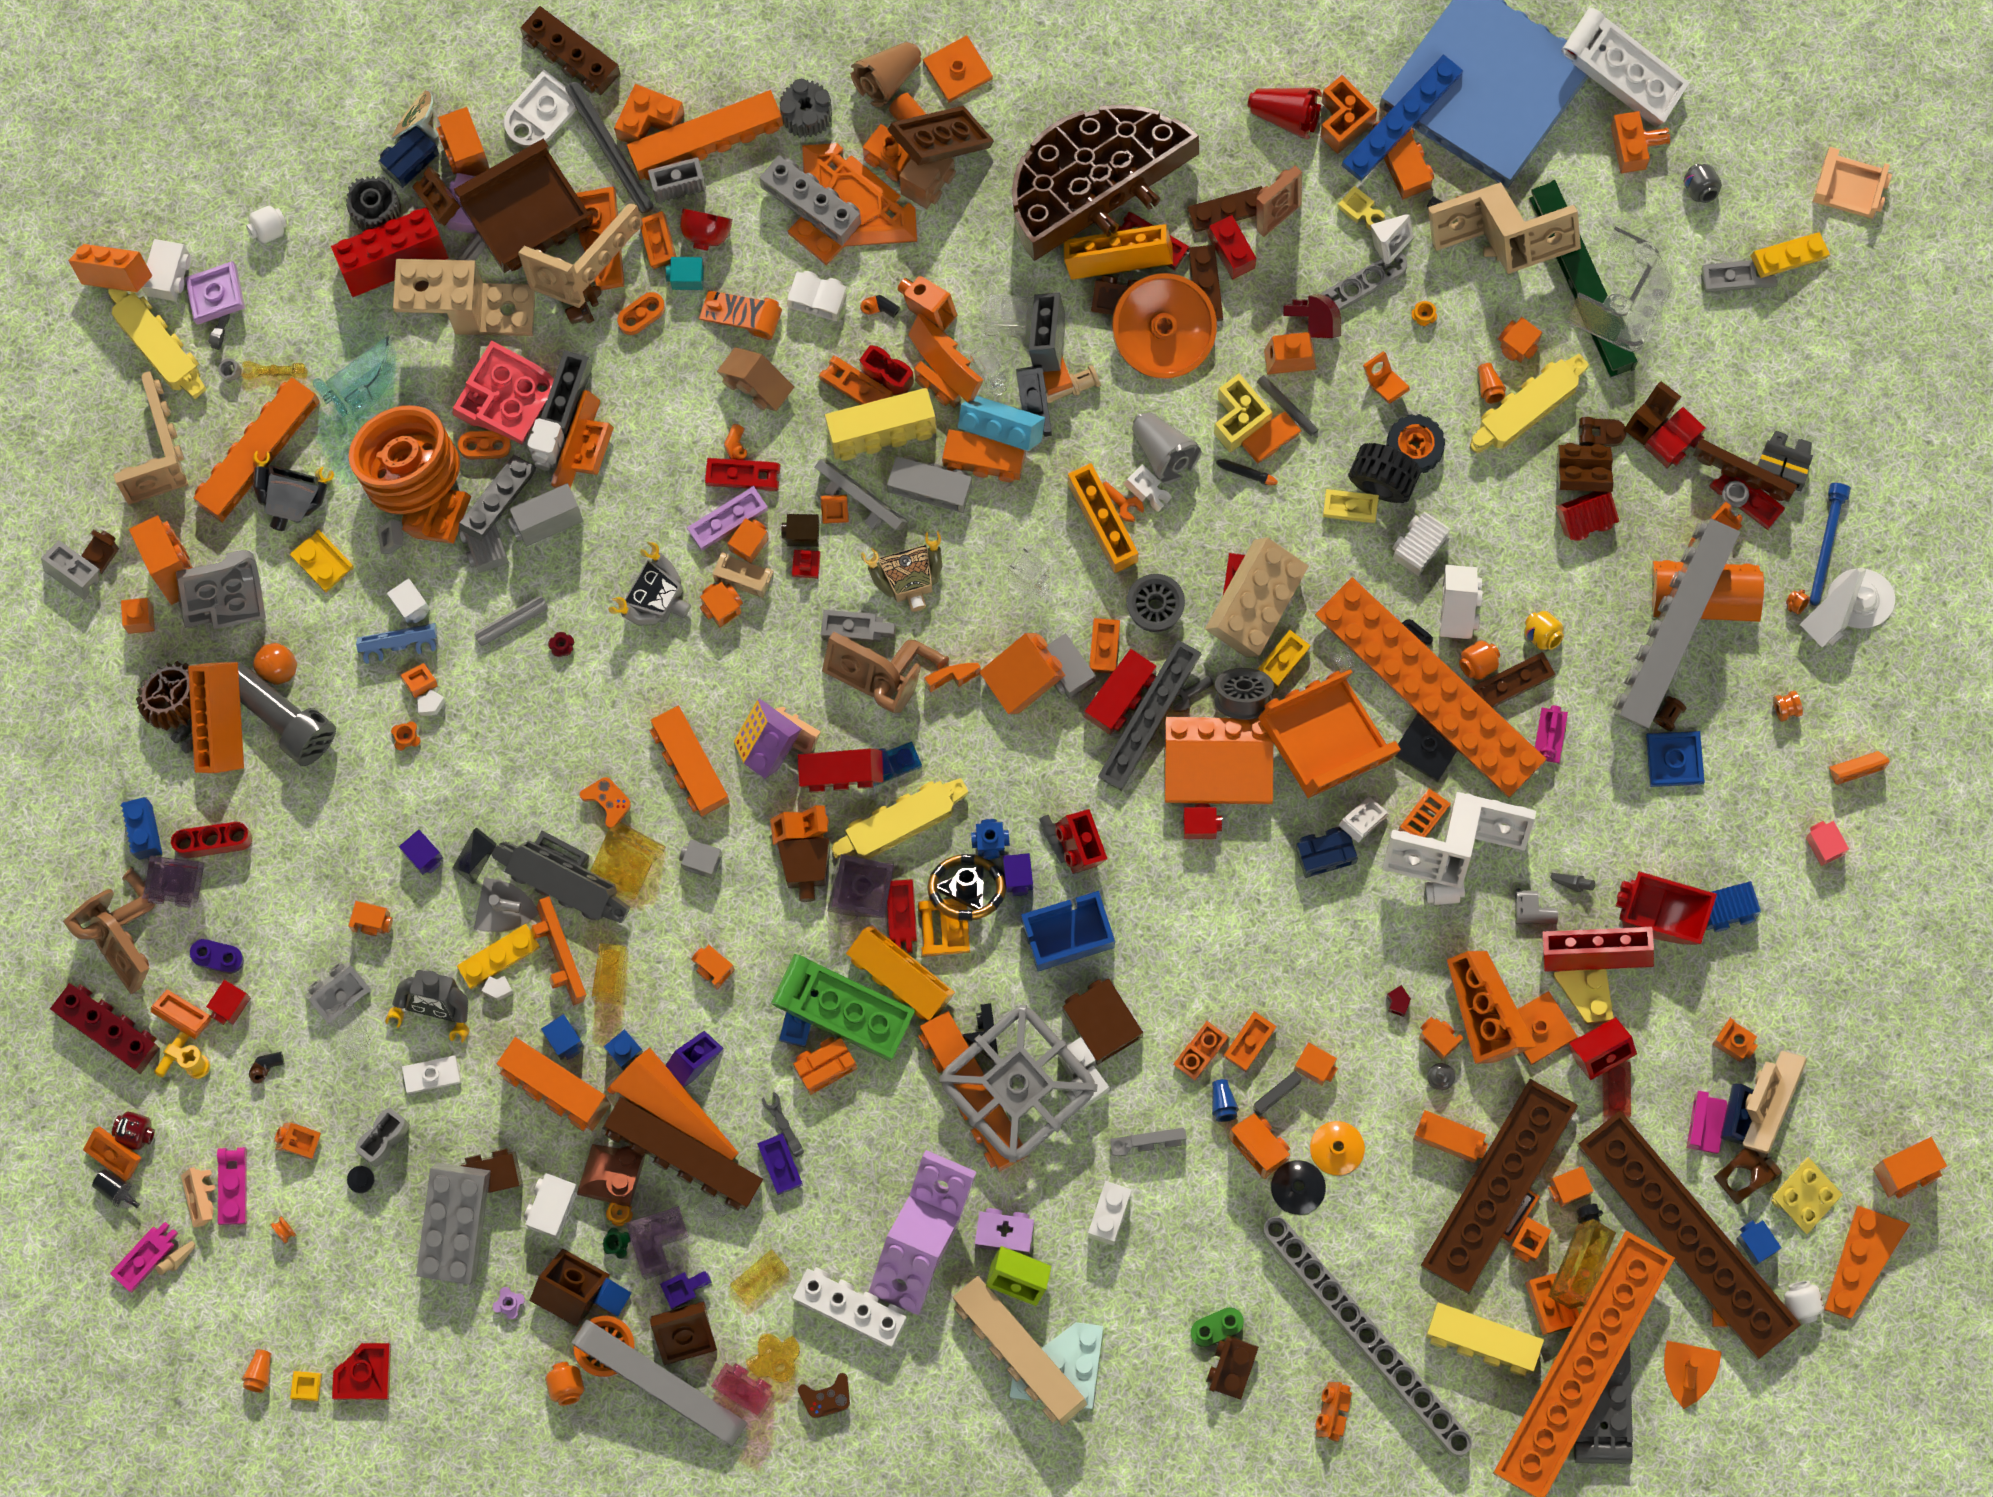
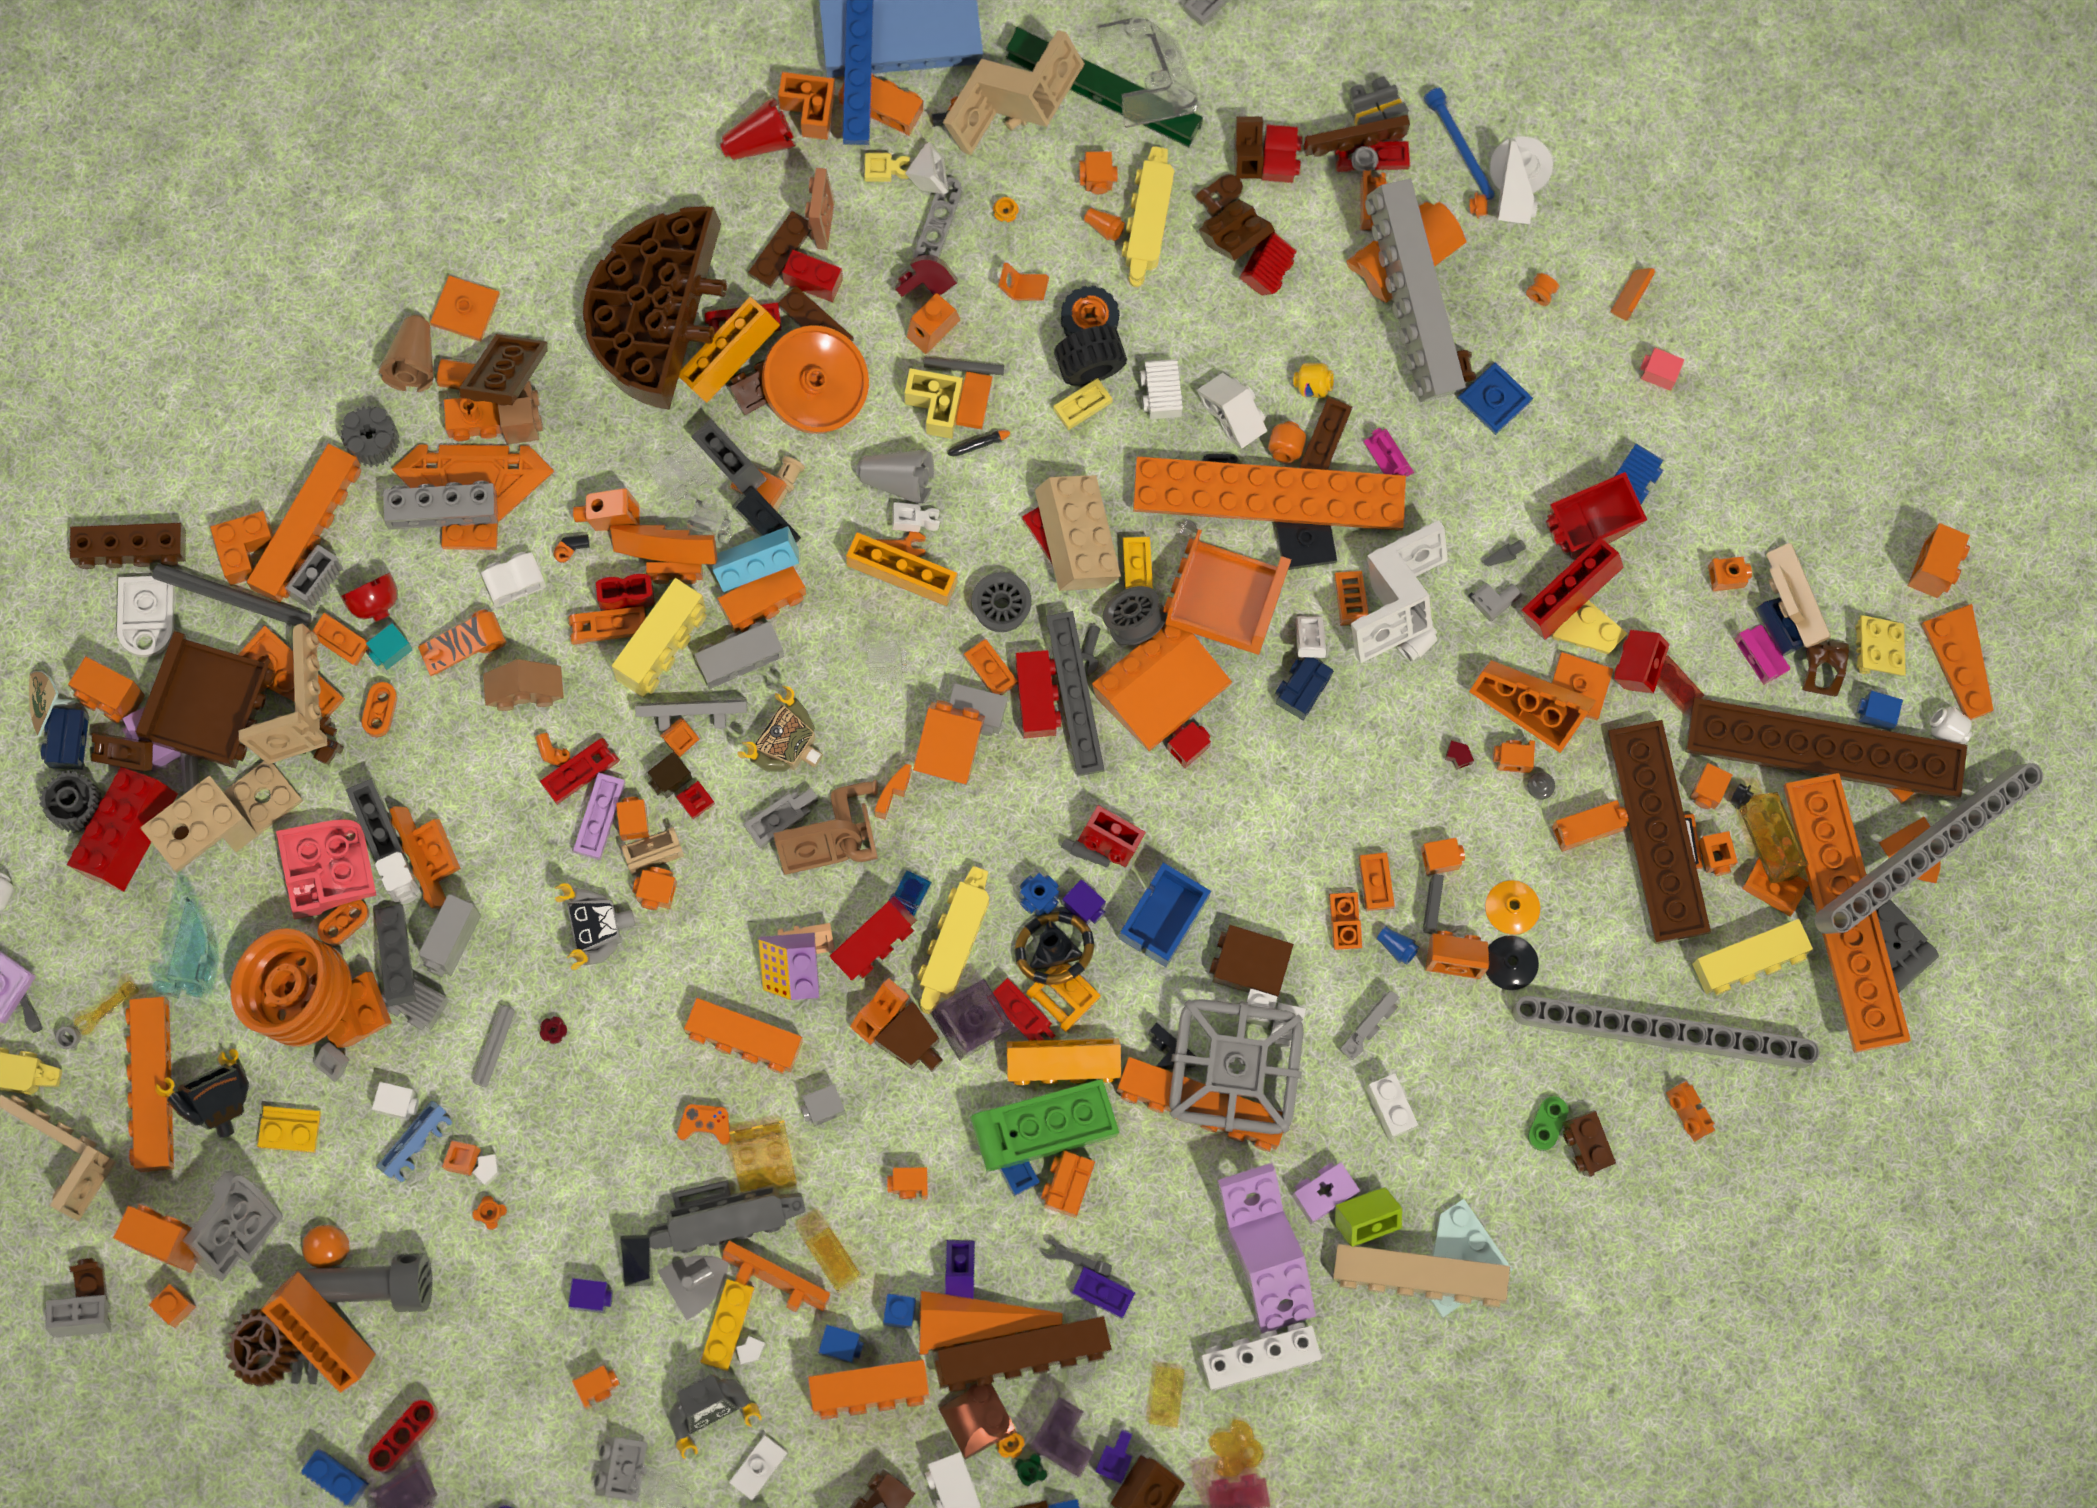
camera: 50 degrees left, 0 degrees up
(827, 1400) = (1307, 1446): reddish brown piece -> none
(1706, 1378) = (1928, 848): none -> light grey beam

